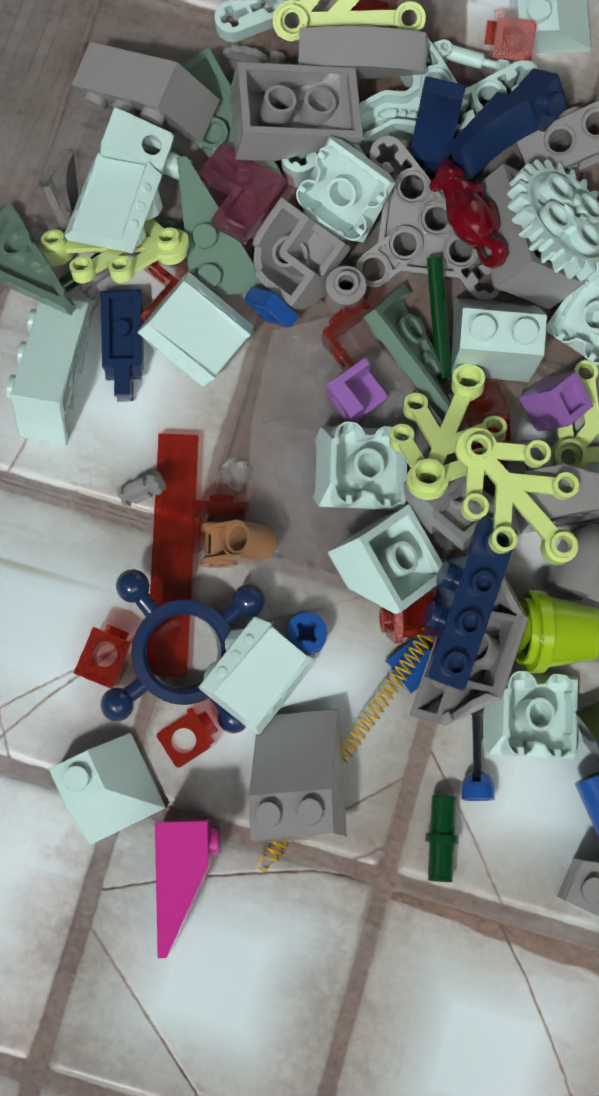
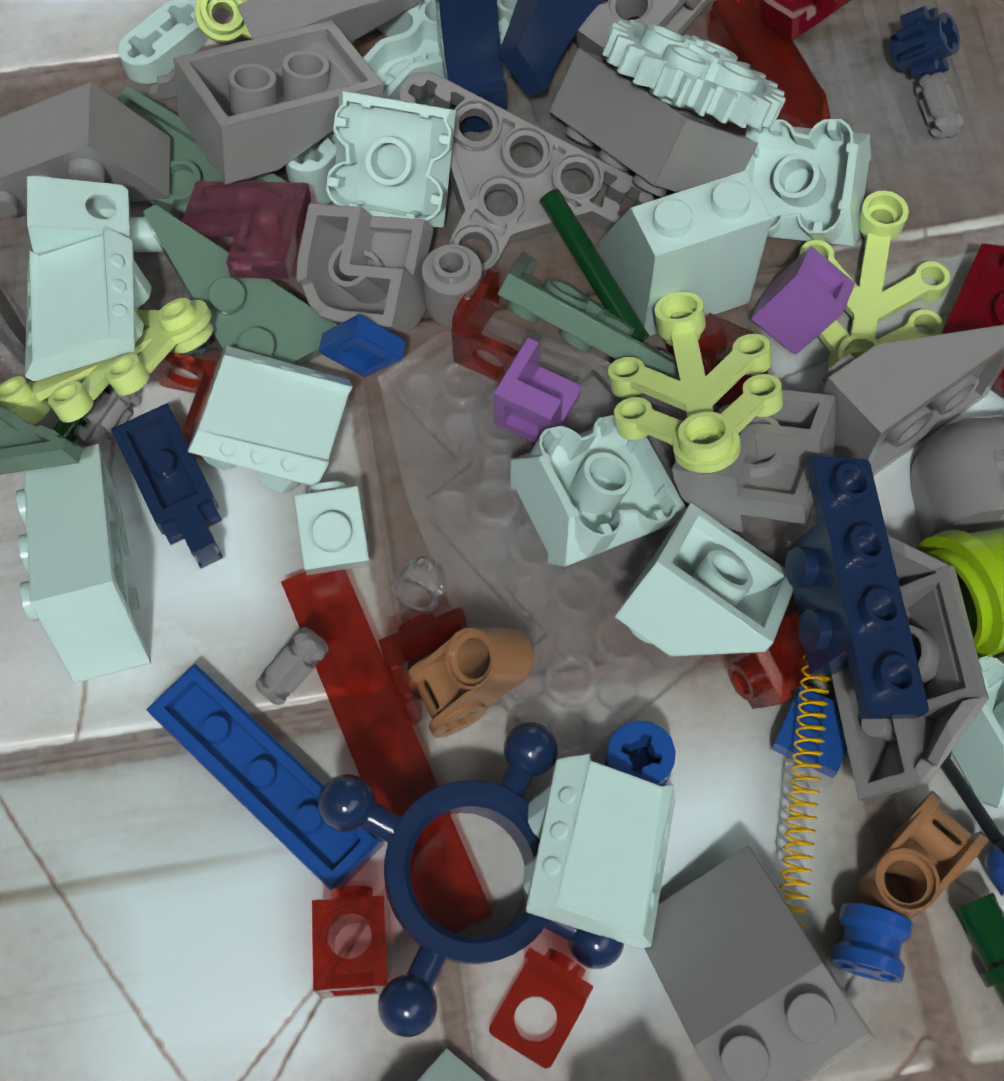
camera: 25 degrees left, 15 degrees down
(96, 537) = (260, 776): none -> blue tile
(200, 416) = (331, 528): none -> light aqua bracket
(376, 789) = (871, 942): none -> blue wheel
(434, 758) = (926, 853): none -> medium nougat piece
(468, 213) = (572, 117): dark red animal -> none
(512, 490) = (835, 405): yellowish green plant -> none

